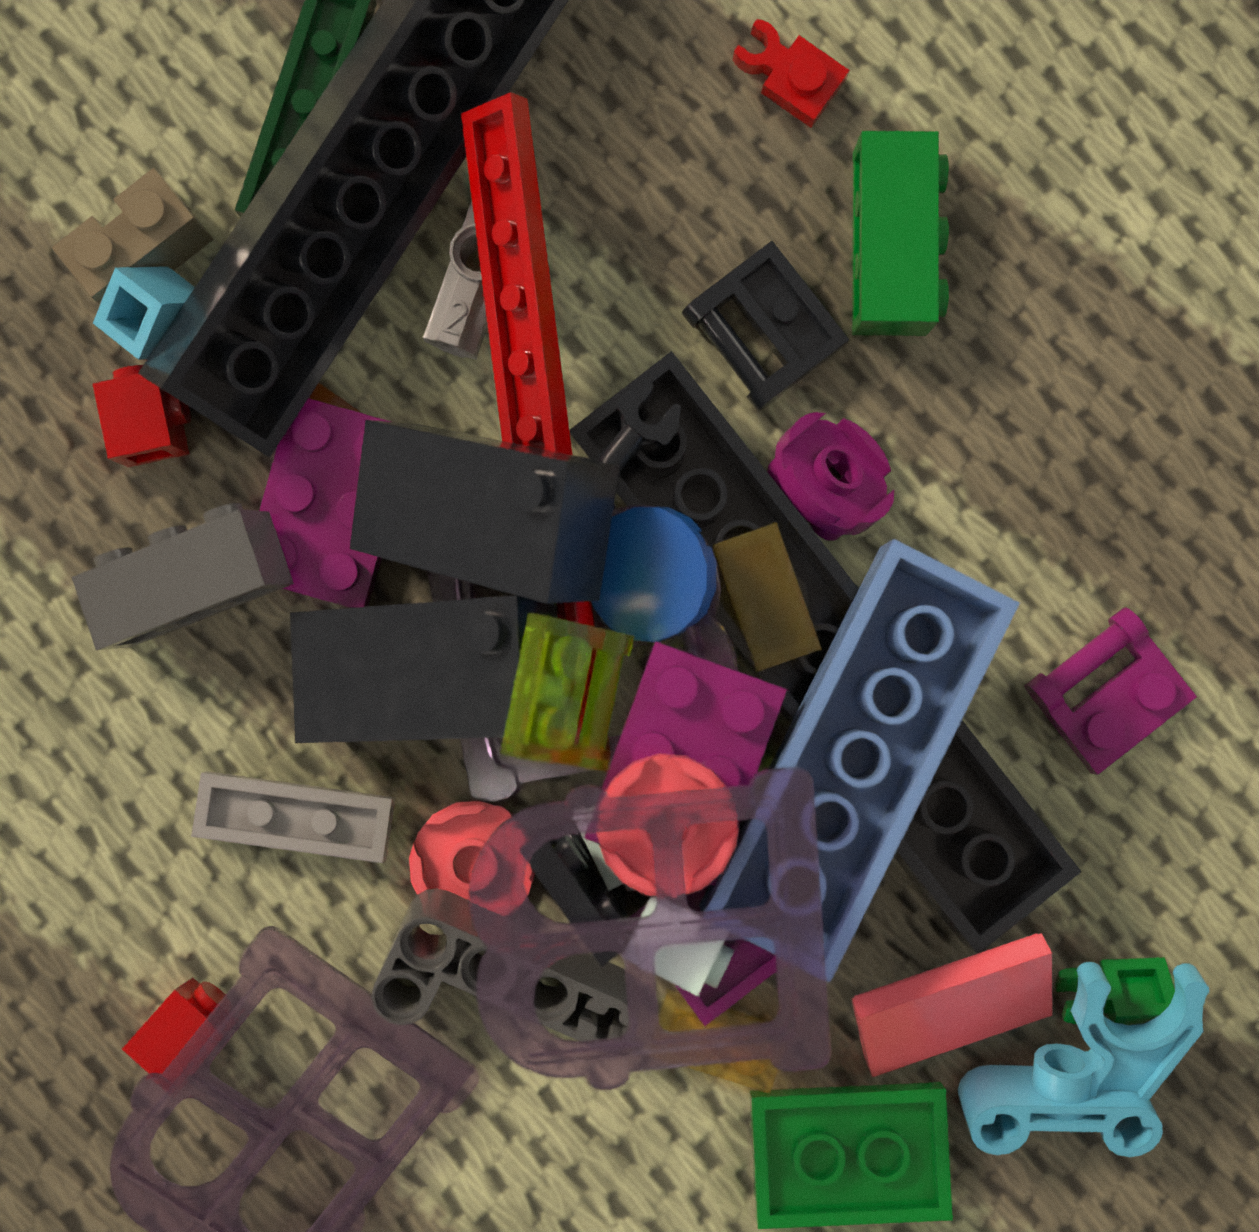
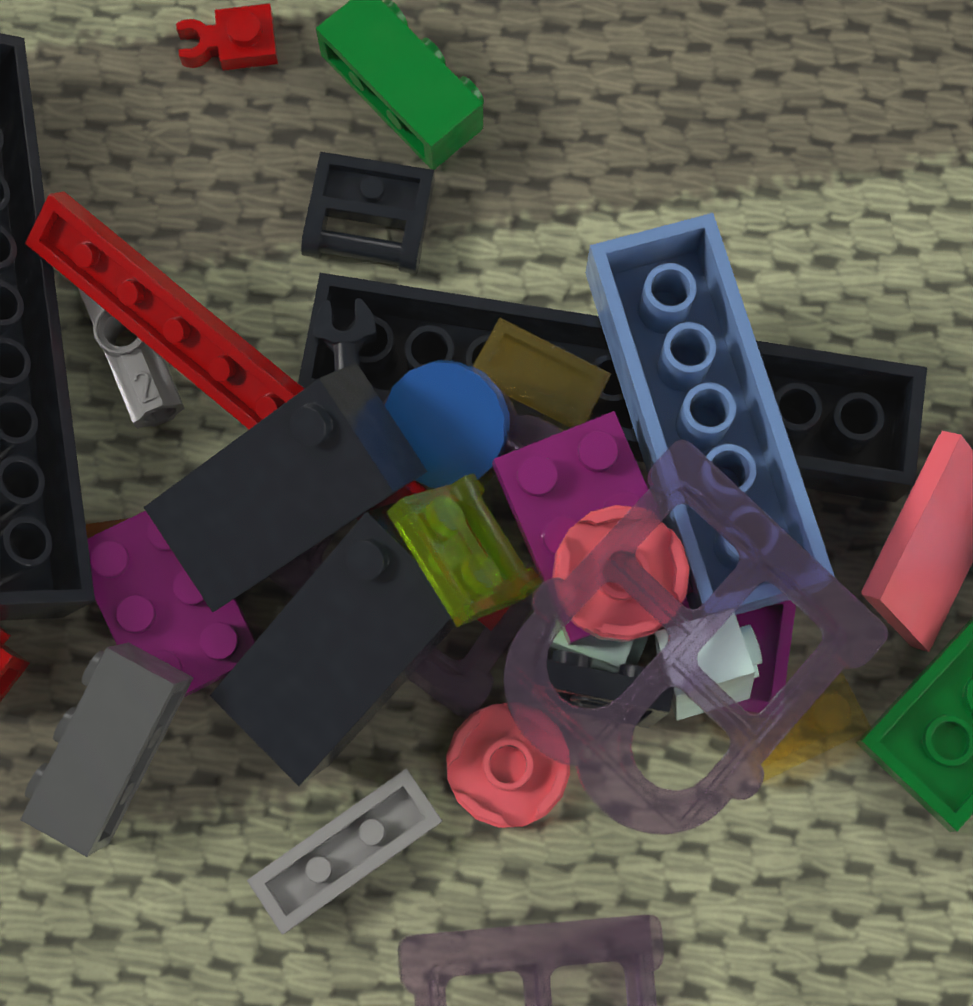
camera: 40 degrees left, 10 degrees down
(456, 961) = (557, 838): dark grey beam -> none
(804, 476) = (508, 264): magenta plate -> none
(1124, 706) = (847, 249): magenta plate -> none

